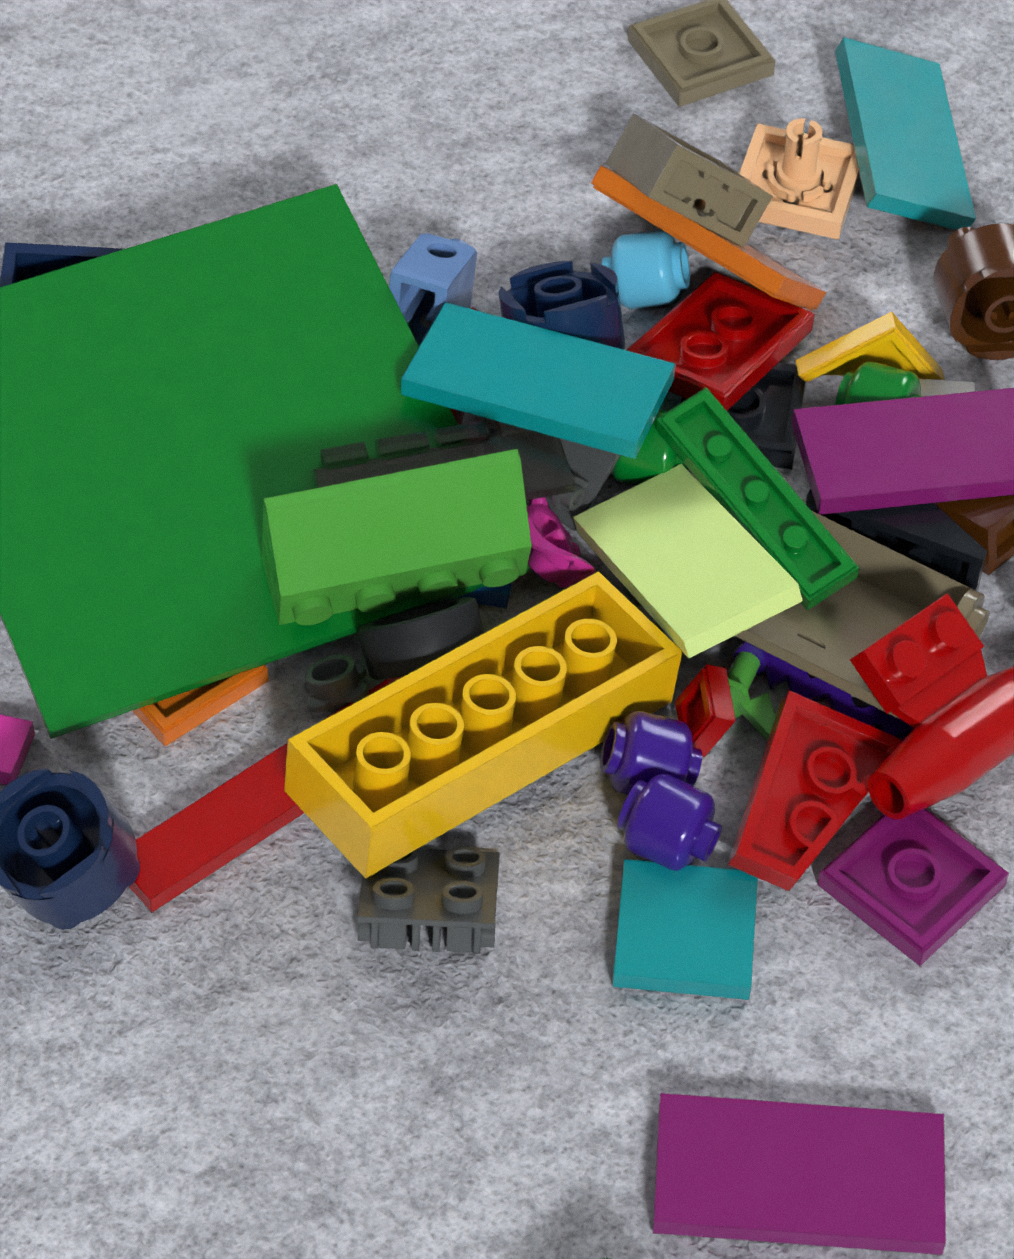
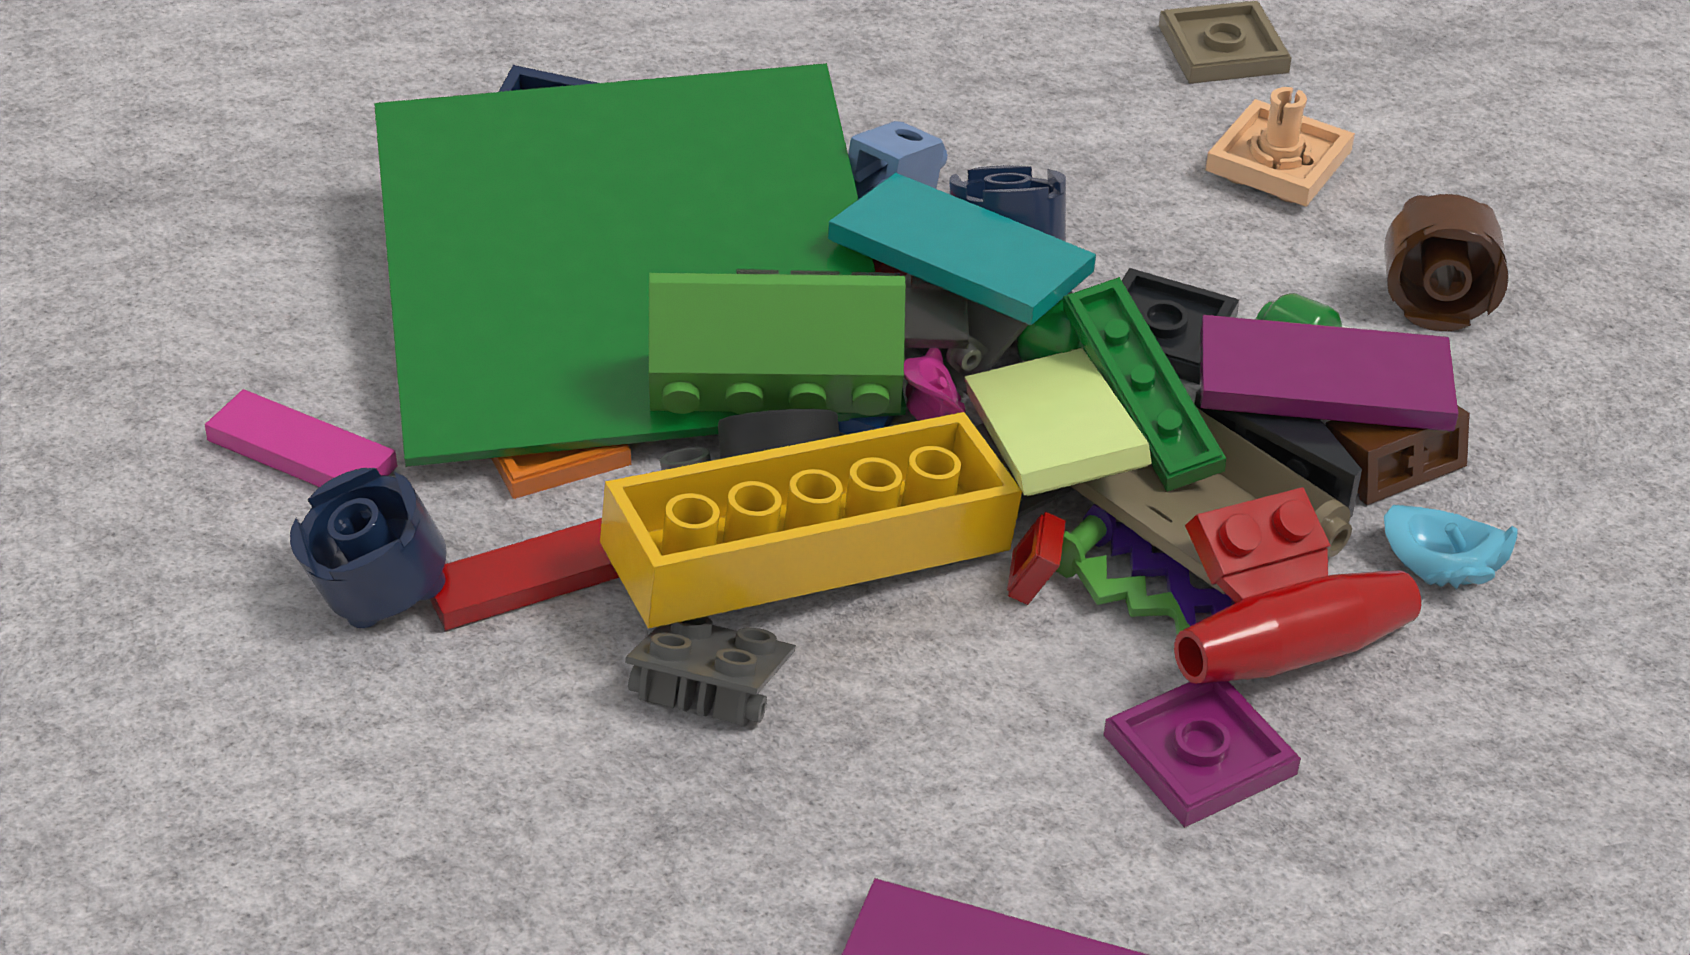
camera: 15 degrees right, 10 degrees down
(648, 747) = (968, 586): dark purple head -> none
(649, 268) = (1108, 195): medium azure head -> none
(669, 822) = (965, 643): dark purple head -> none
(686, 930) = (954, 744): teal tile -> none
(688, 180) = (1165, 119): dark tan window -> none
(724, 338) = (1168, 260): red tile -> none
(741, 261) = (1174, 177): orange tile -> none
(805, 788) = (1109, 641): red wing -> none
(878, 341) = (1309, 277): yellow tile -> none
(904, 135) = (1393, 127): teal tile -> none

